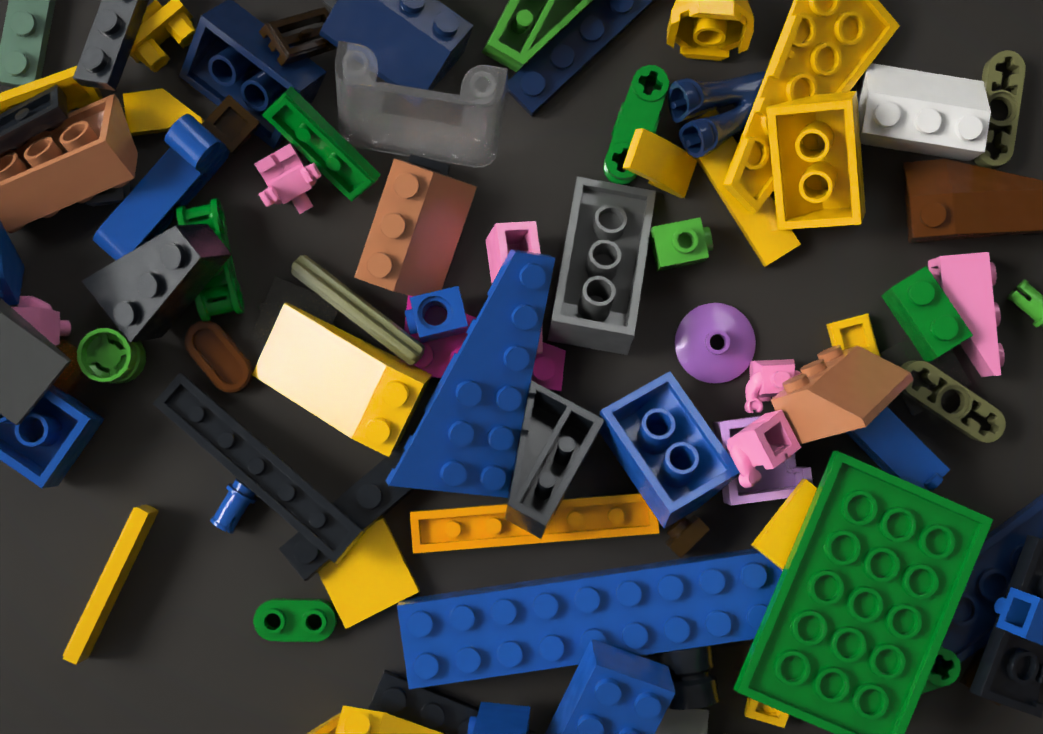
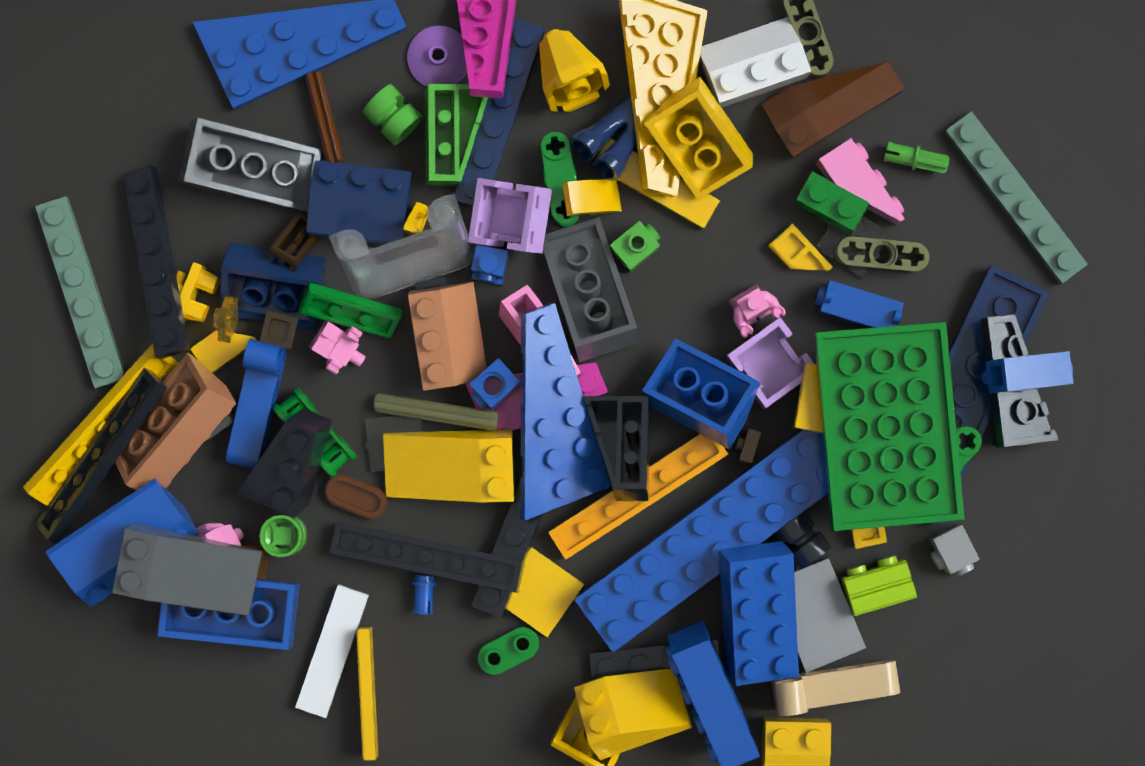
camera: 20 degrees left, 0 degrees up
(98, 514) = (332, 651): none -> white tile
(179, 81) = (226, 319): none -> clear yellow plate
(449, 80) = (416, 219): none -> yellow tile
(505, 177) = (489, 265): none -> blue brick
(558, 133) = (509, 215): none -> lavender piece
(694, 346) = (697, 318): medium lavender dish -> none
(762, 442) = (763, 354): bright pink piece -> none
(839, 392) = (796, 292): nougat slope -> none

